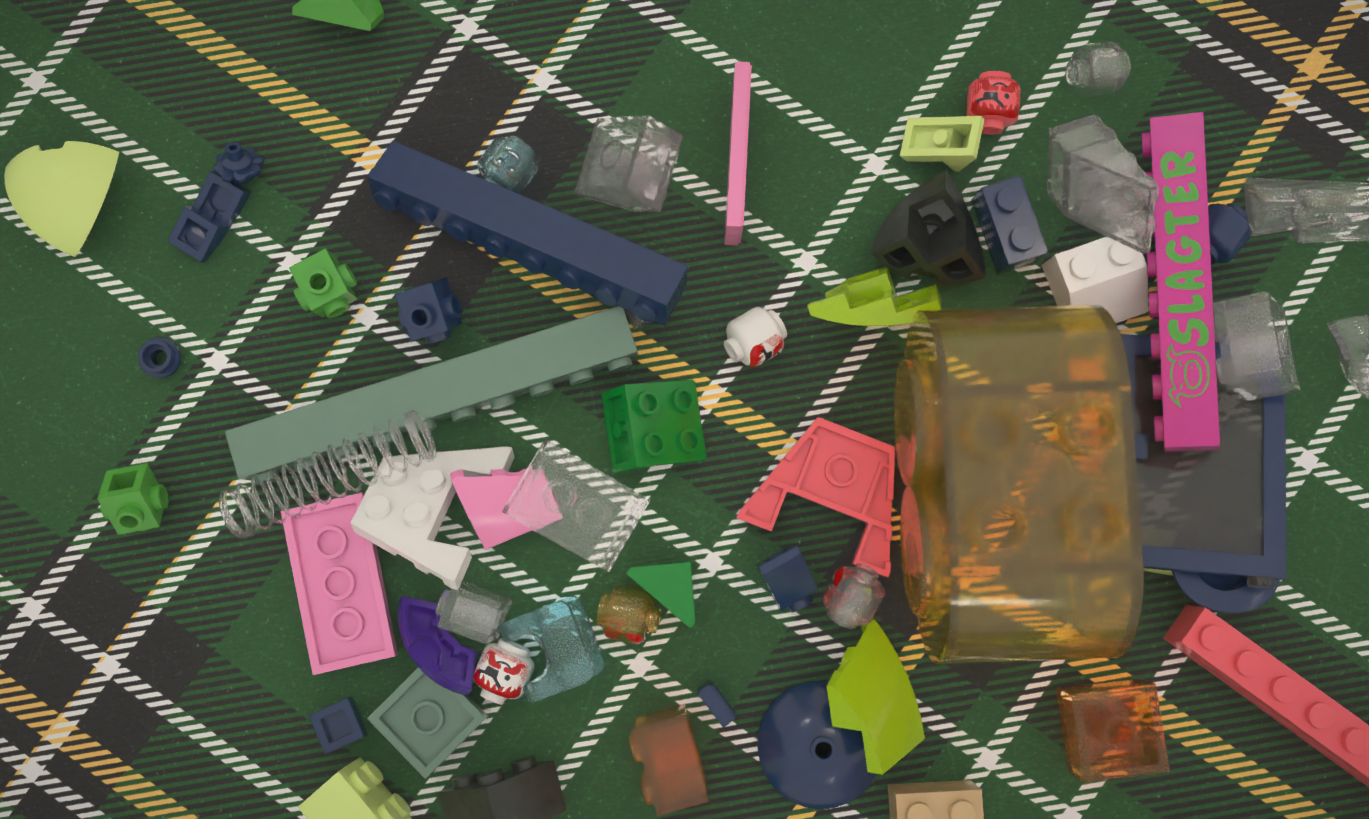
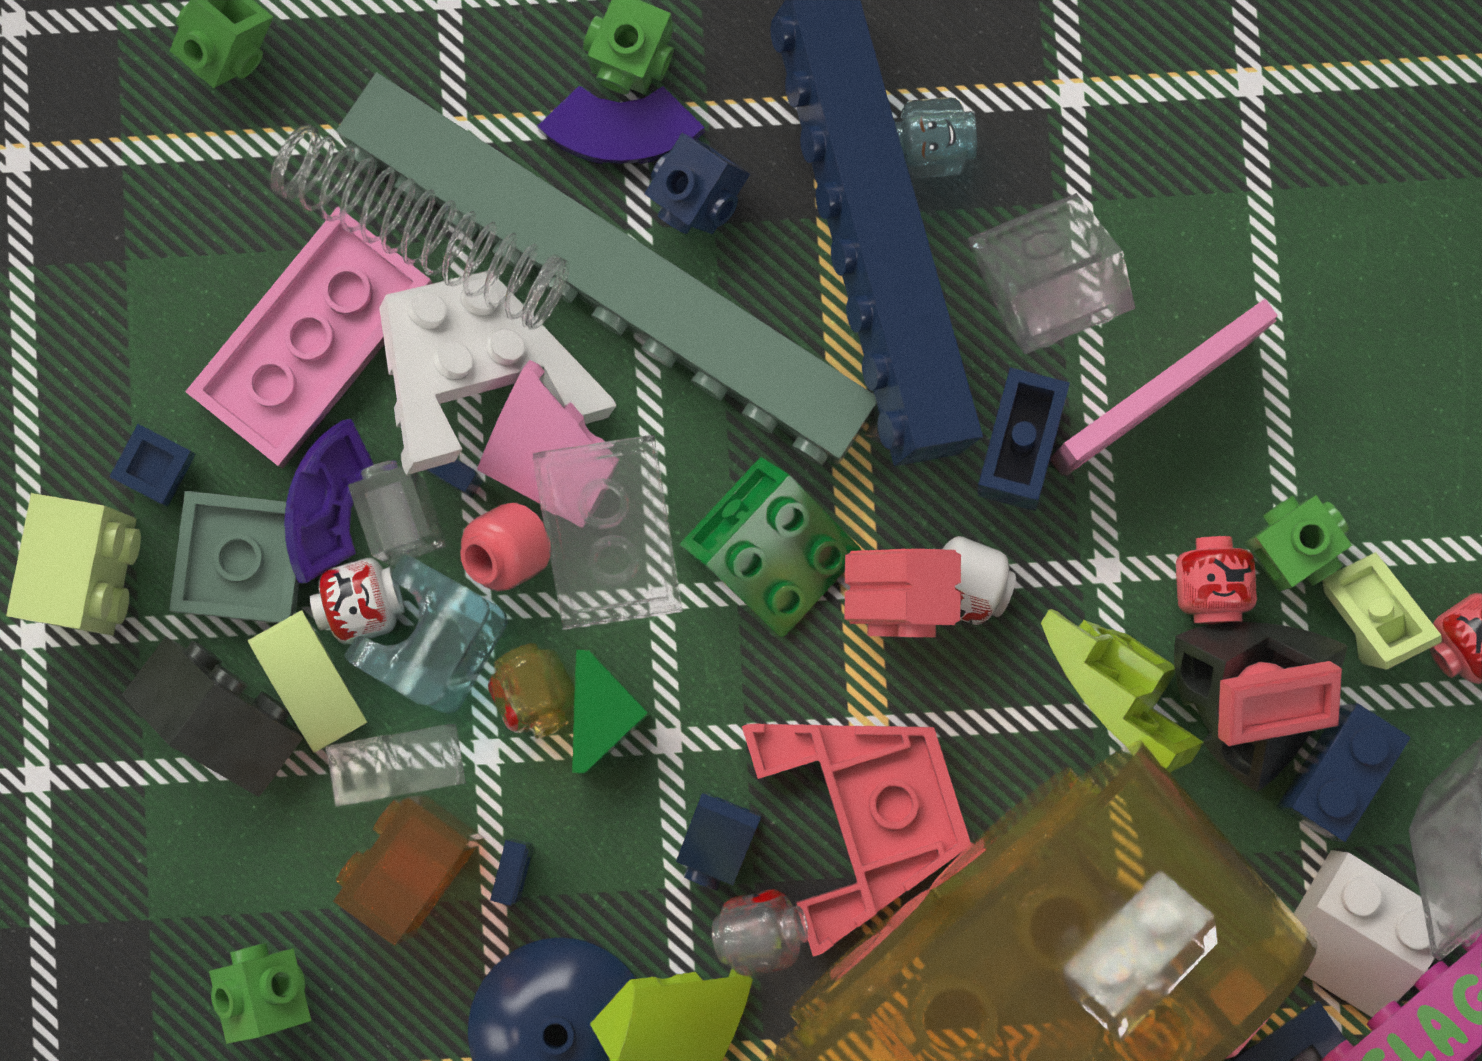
camera: 55 degrees right, 0 degrees up
(366, 327) = (619, 131): none -> dark purple tile
(481, 562) = (458, 476): none -> dark blue tile
(524, 733) = (307, 681): none -> yellowish green slope
(539, 567) = (505, 547): none -> coral head
(608, 720) = (395, 765): none -> clear slope
(705, 247) = (1023, 439): none -> dark blue brick
(735, 374) = (902, 590): none -> coral brick
(858, 210) = (1216, 581): none -> coral head
(873, 150) = (1283, 554): none -> bright green brick
(949, 226) = (1278, 701): none -> coral tile
(1045, 398) = (1140, 955): none -> clear brick

